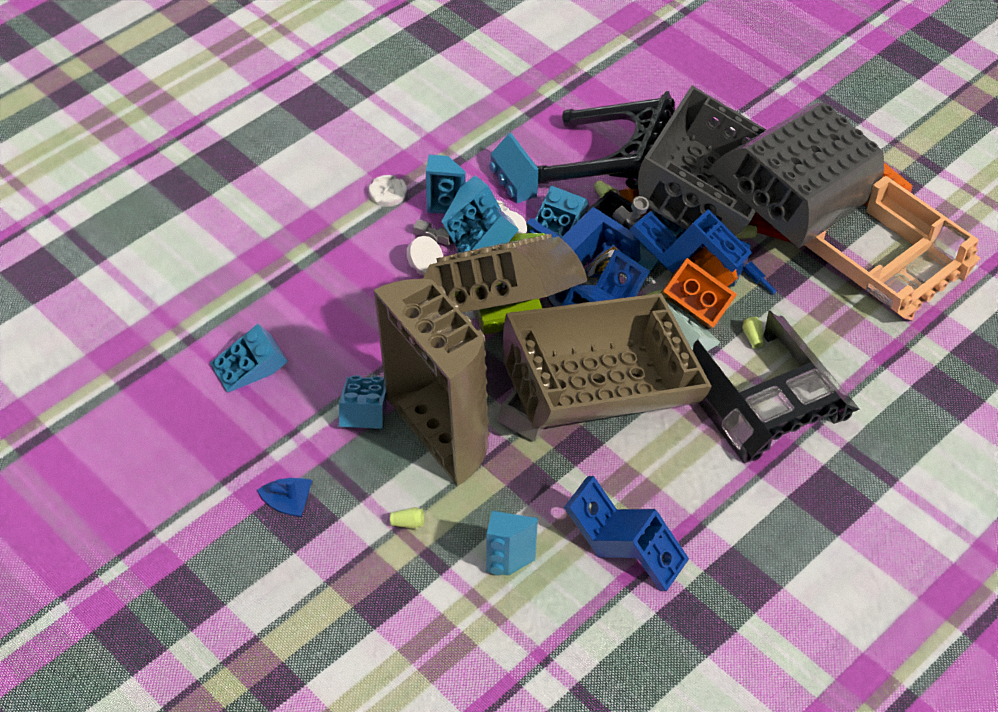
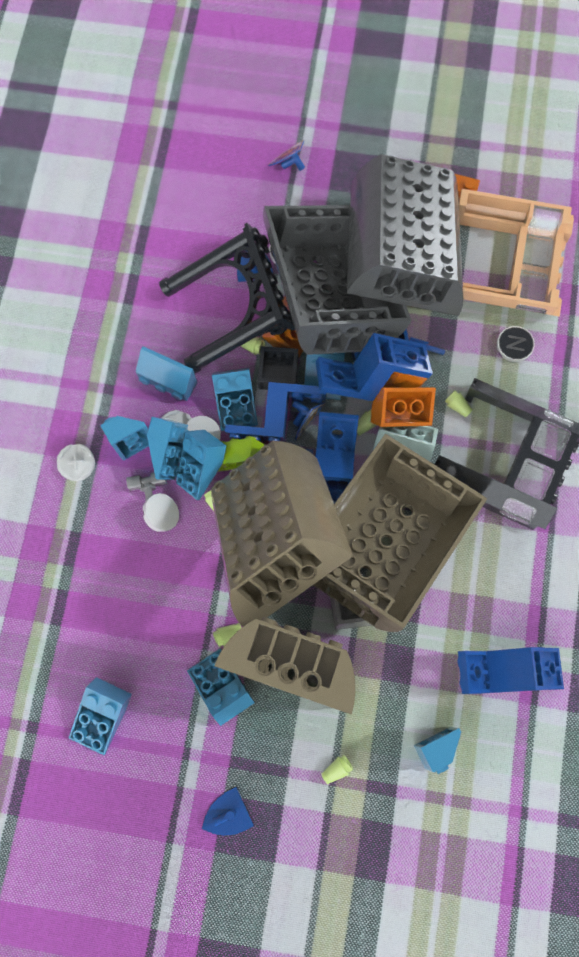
camera: 30 degrees left, 25 degrees up
(624, 217) = (305, 369): light grey bar -> none
(758, 85) = (294, 158): none -> blue shield
(847, 322) = (515, 344): none -> black tile

